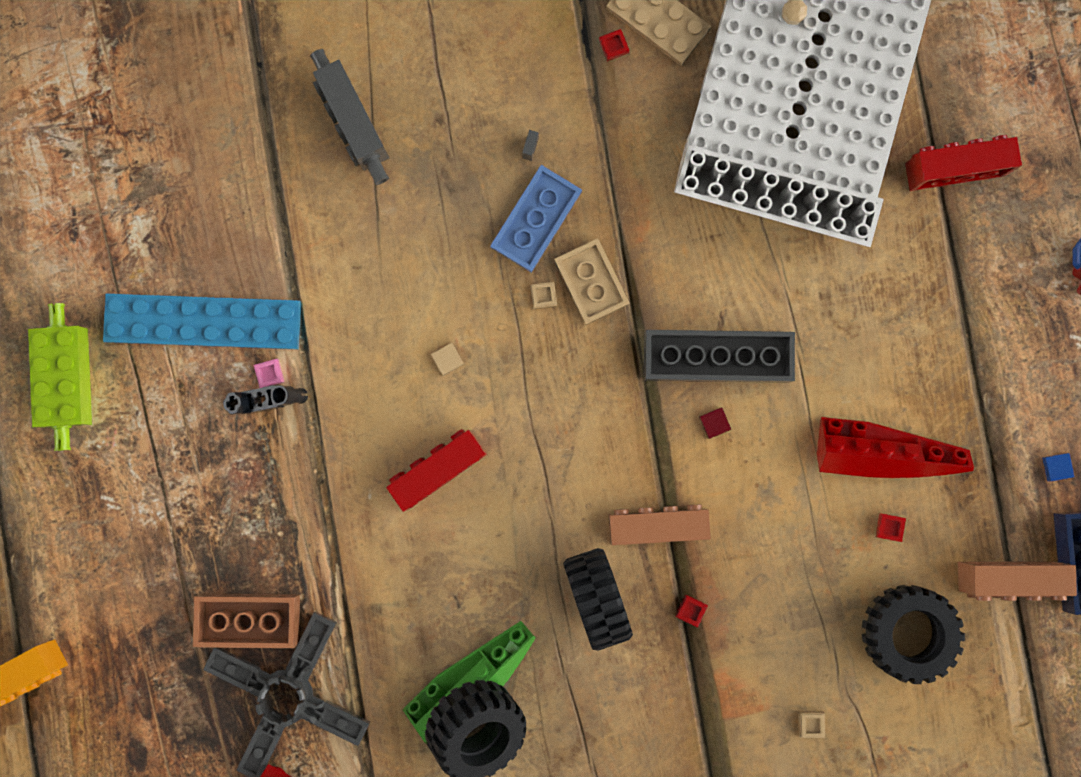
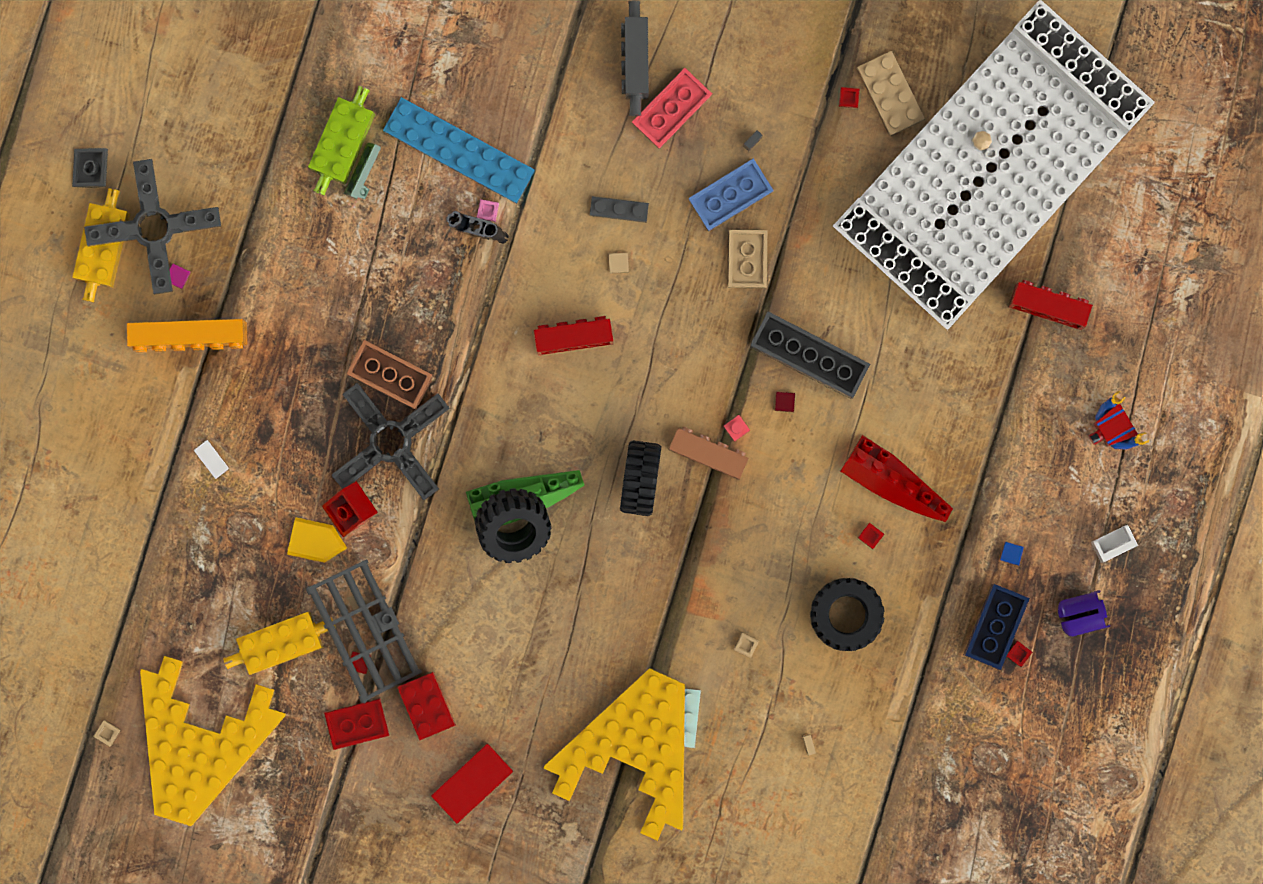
camera: 30 degrees right, 0 degrees up
(103, 421) = (356, 186): none -> sand green hinge
(417, 298) = (619, 209): none -> dark grey plate
(420, 154) = (672, 108): none -> coral plate
(543, 295) = (709, 251): tan tile -> none
(675, 480) = (736, 428): none -> coral plate
(691, 610) = (701, 524): red tile -> none
(1017, 579) = (938, 612): nougat brick -> none

